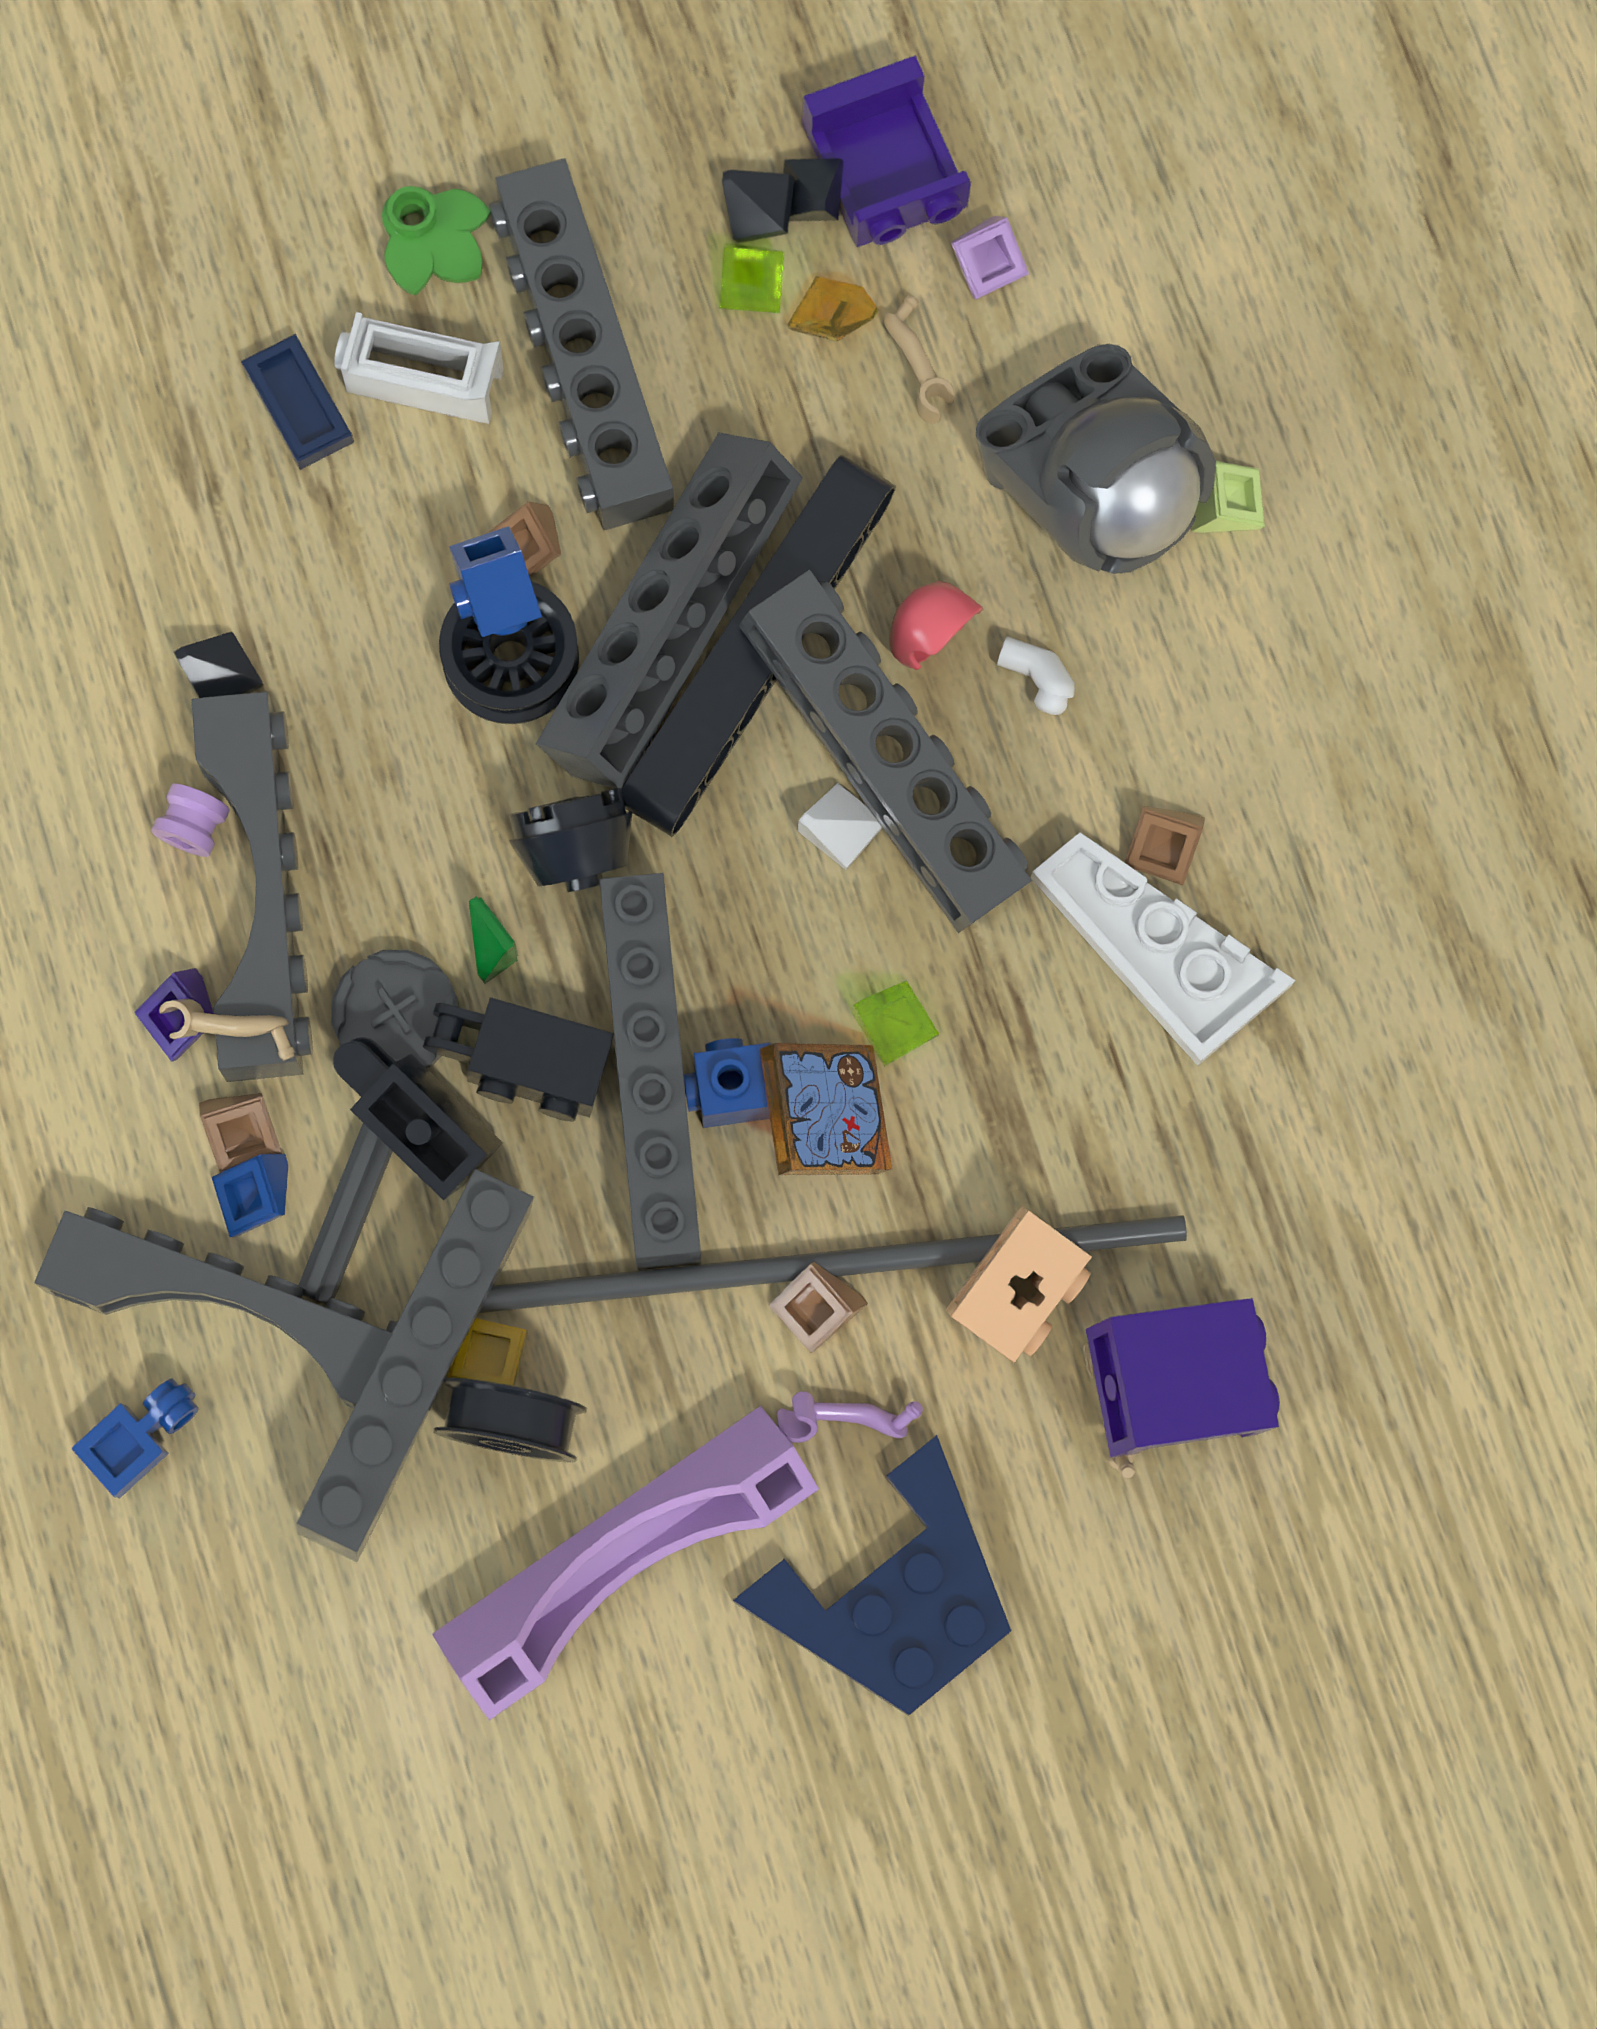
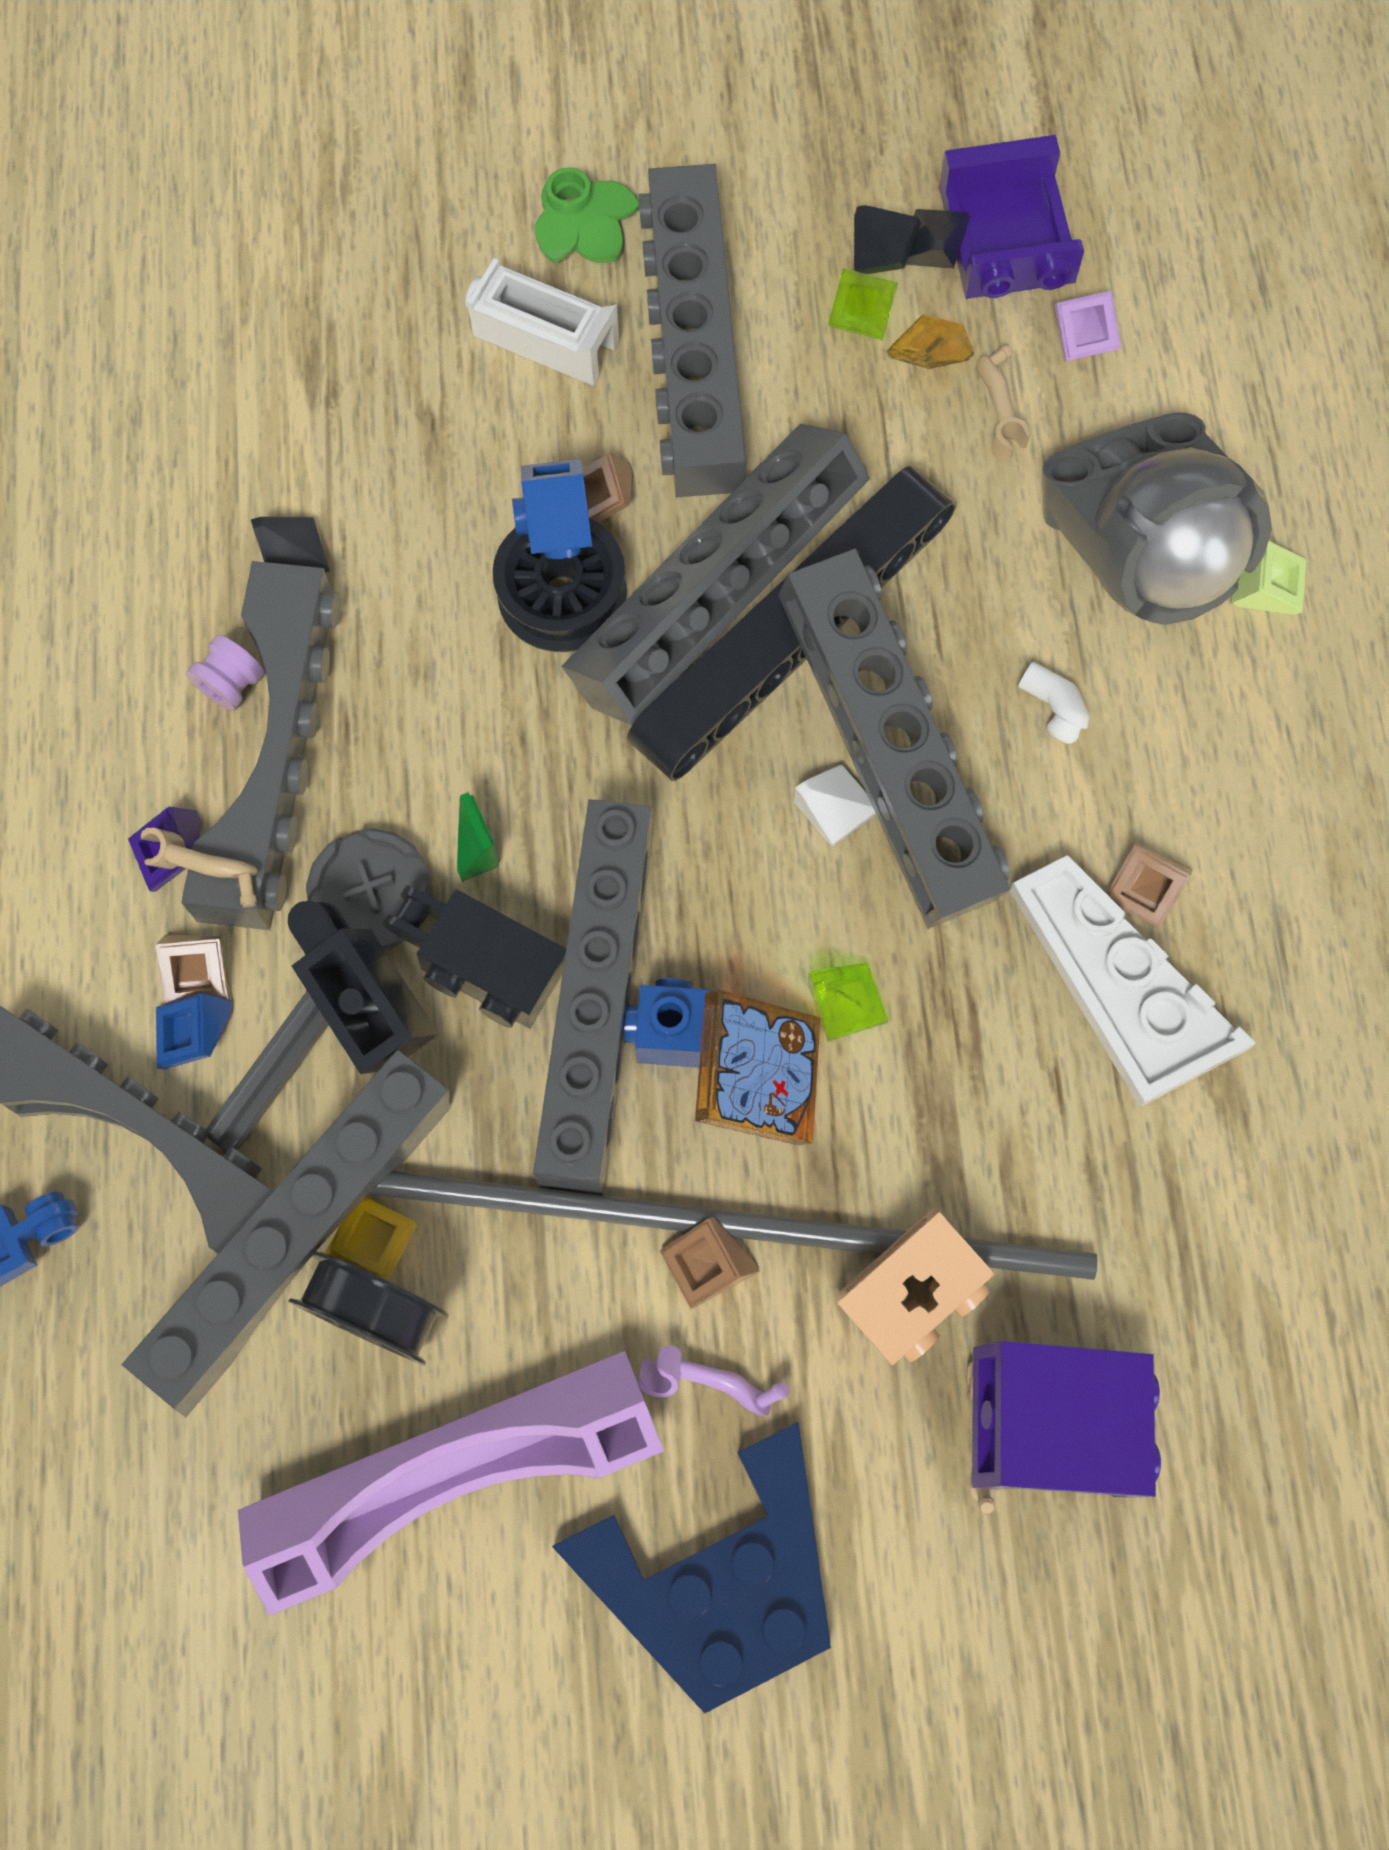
camera: 20 degrees right, 5 degrees down
(297, 401) = (426, 333): dark blue tile -> none
(573, 839) = (574, 759): black cone -> none
(929, 621) = (960, 629): coral hair -> none

